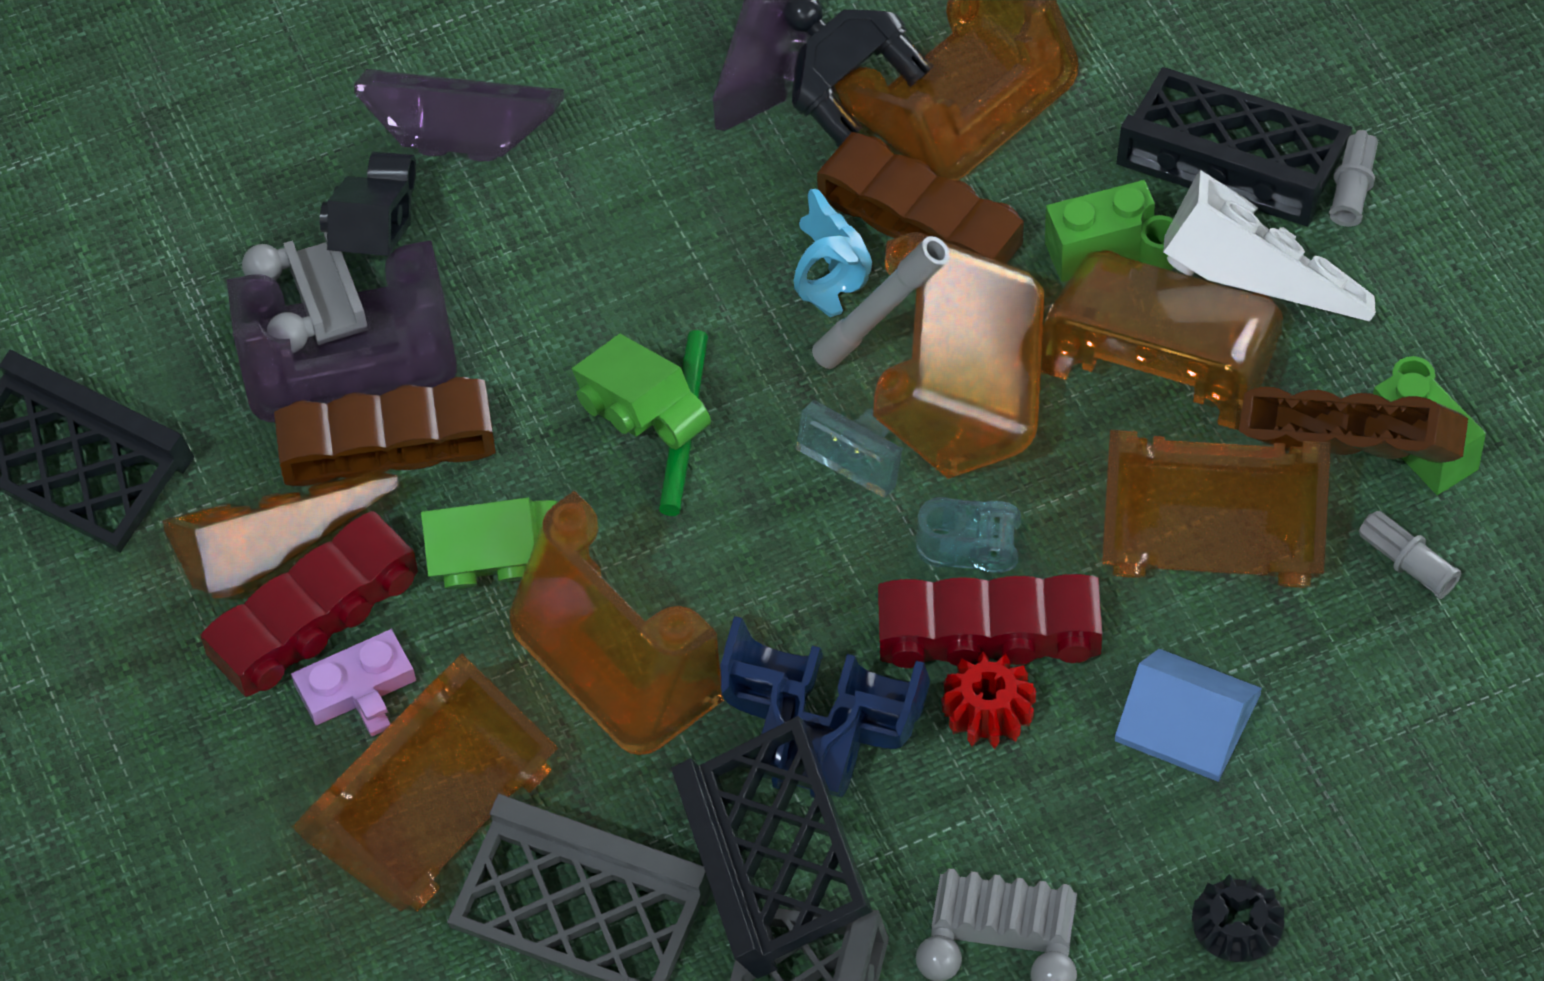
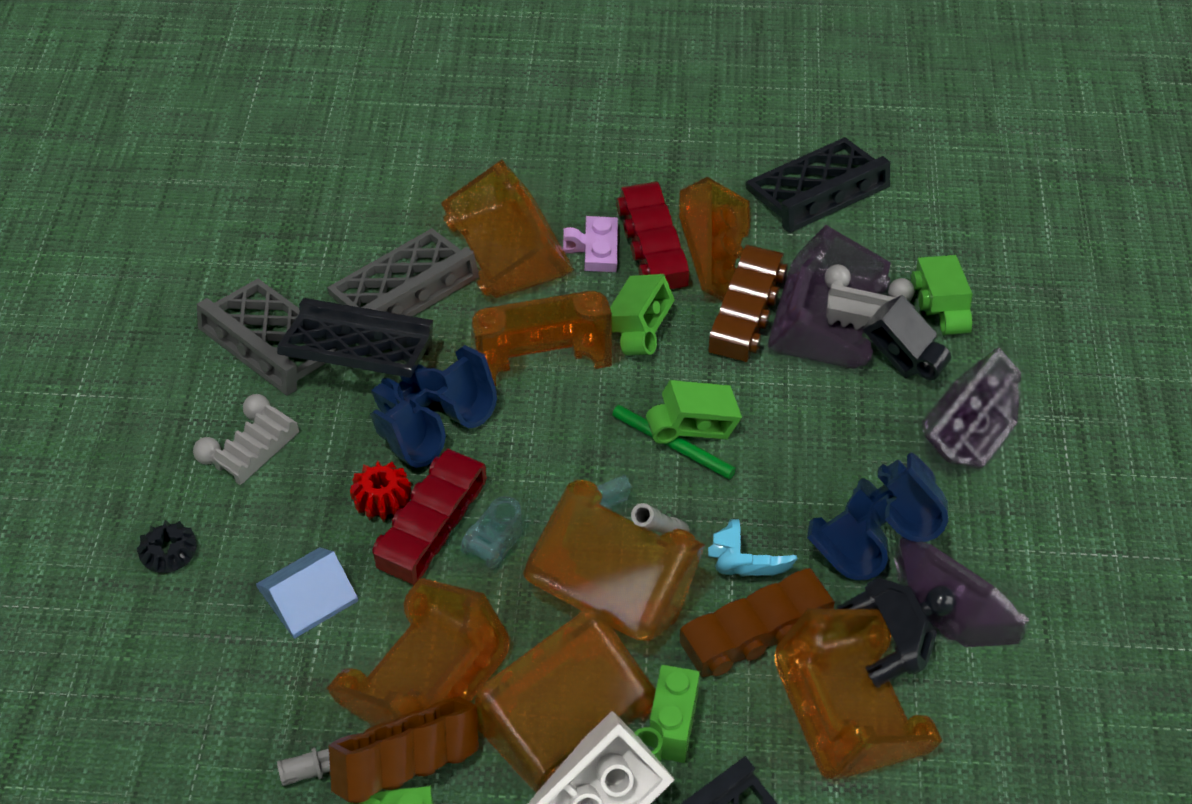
camera: 115 degrees right, 5 degrees down
(244, 210) = (944, 292): none -> bright green hinge
(656, 127) = (906, 501): none -> dark blue piece

